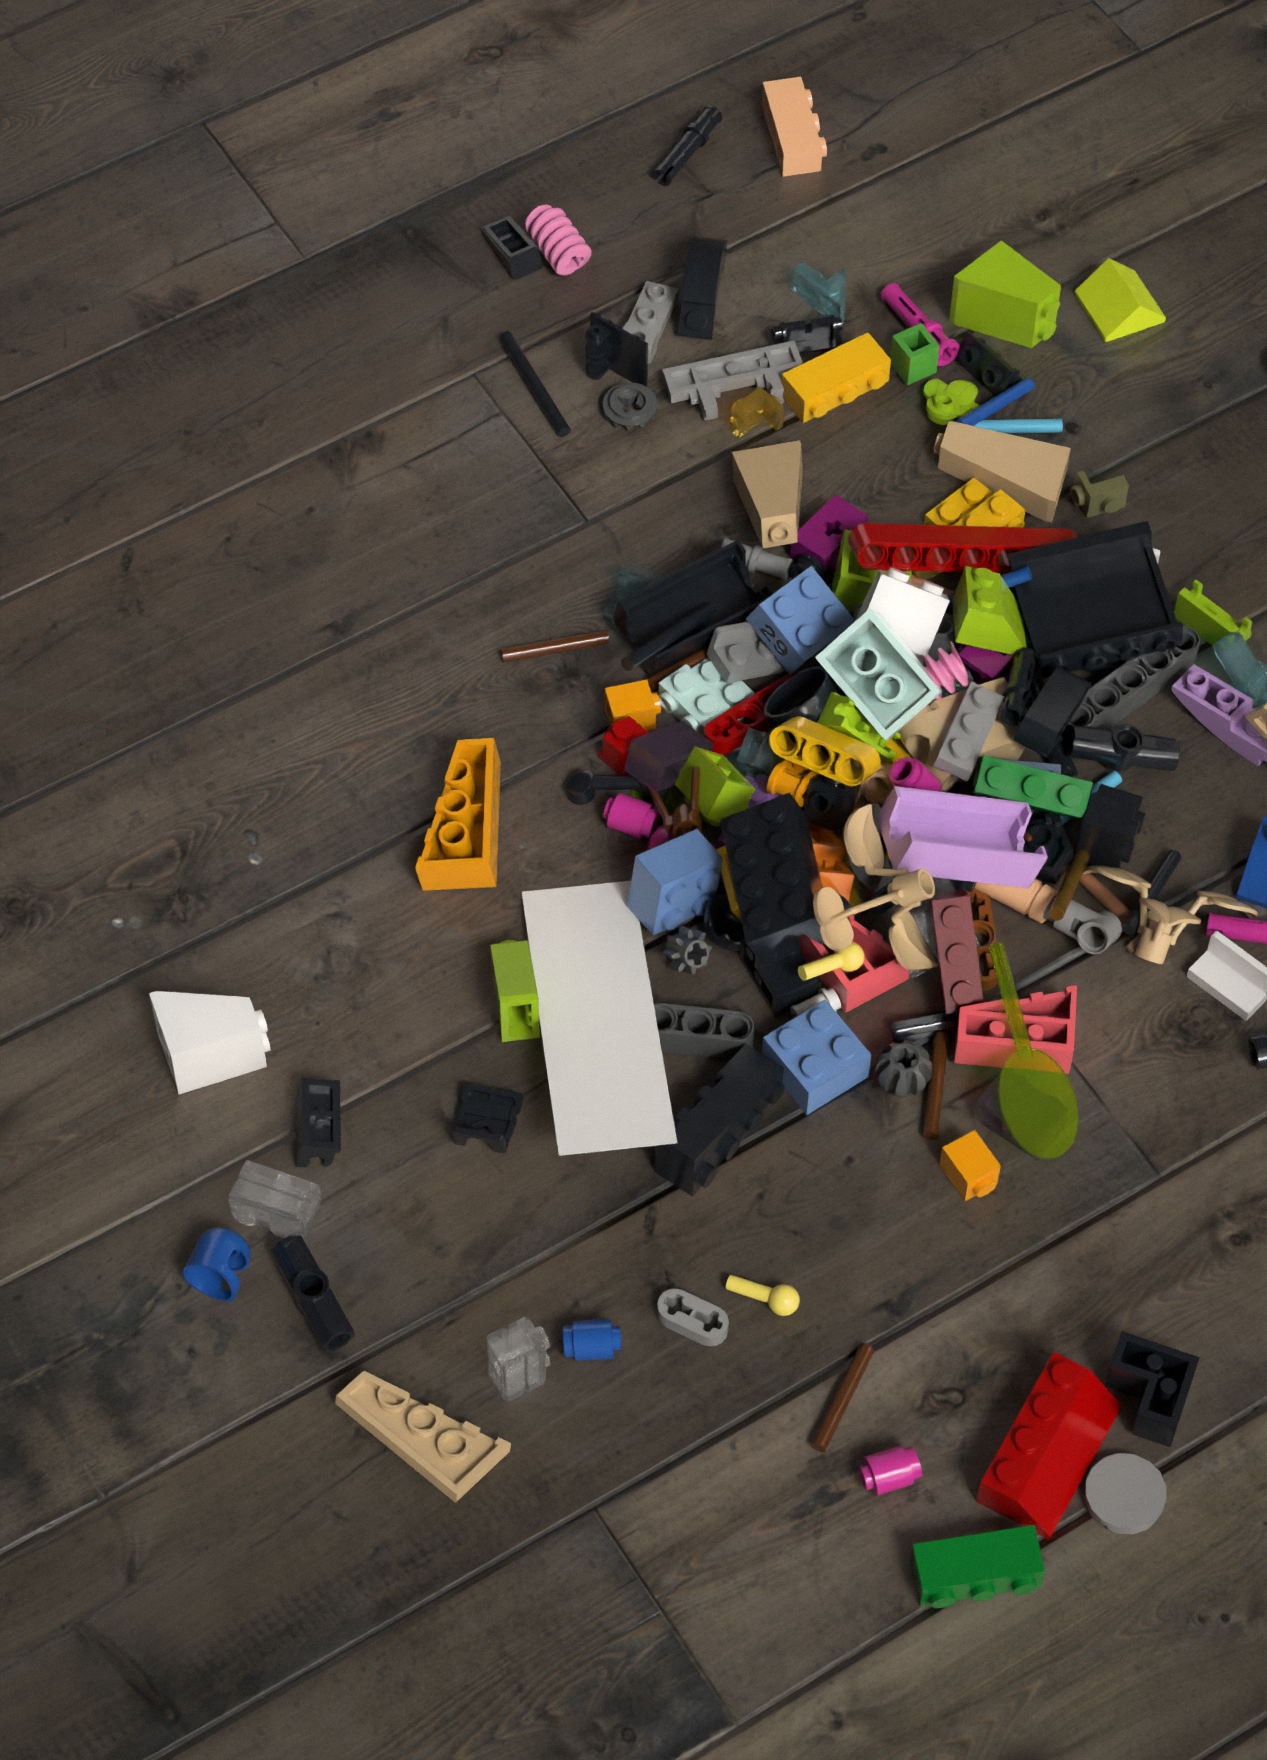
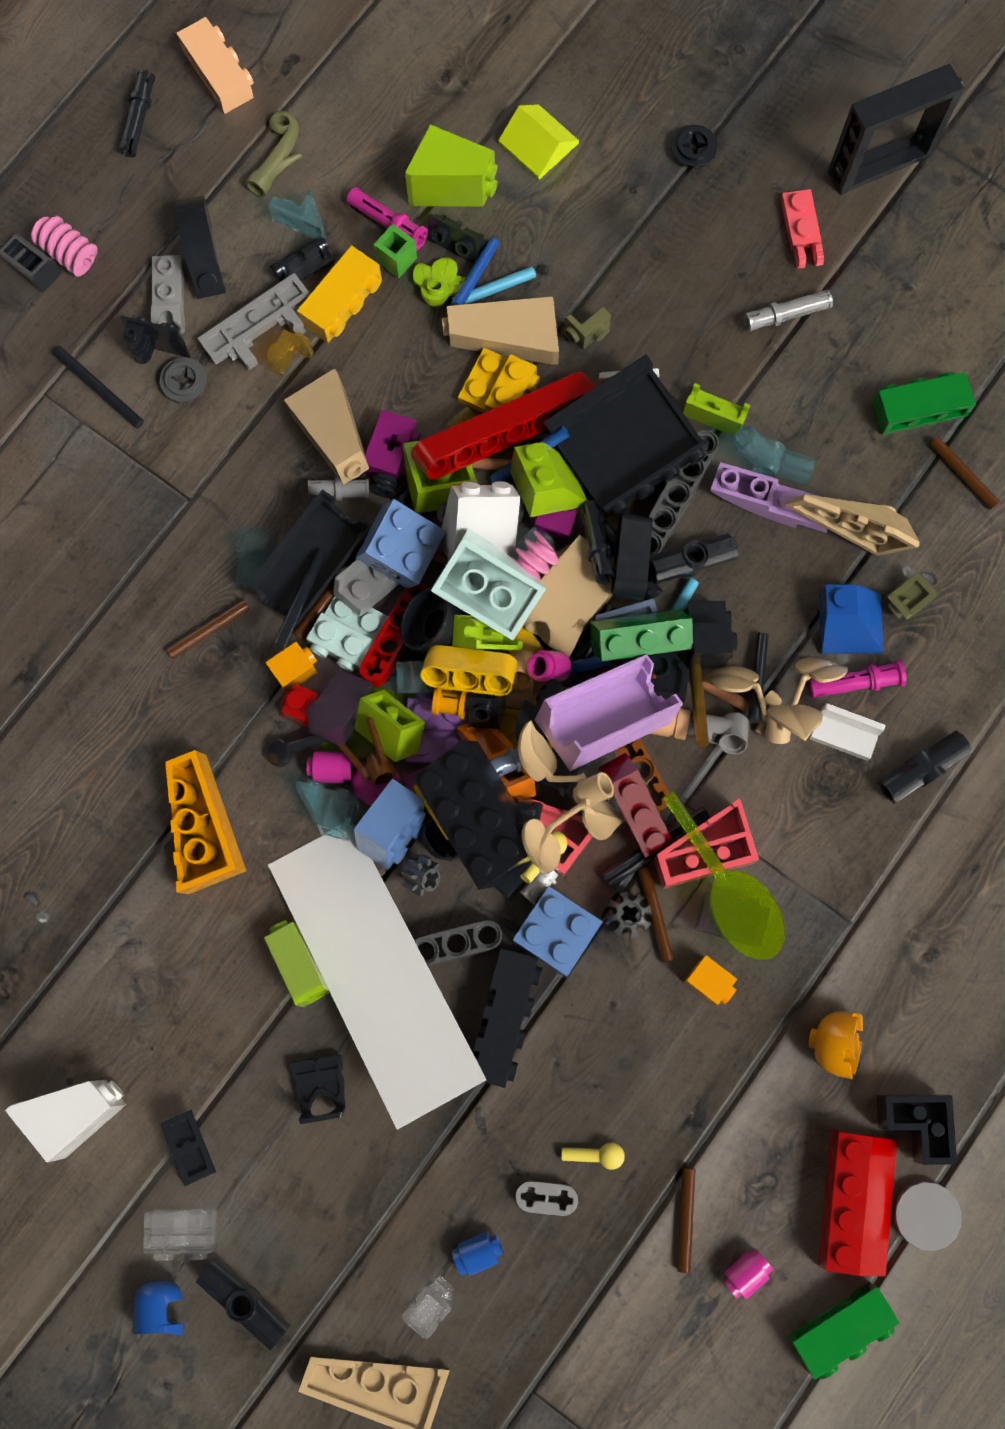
camera: 20 degrees left, 20 degrees up
(610, 853) = (329, 810): none -> clear light blue slope
(825, 233) = (261, 179): none -> olive plant
(831, 851) = (507, 762): none -> sand blue pin
(968, 731) = (575, 603): light grey plate -> none
(1092, 1273) = (837, 1043): none -> light orange cylinder

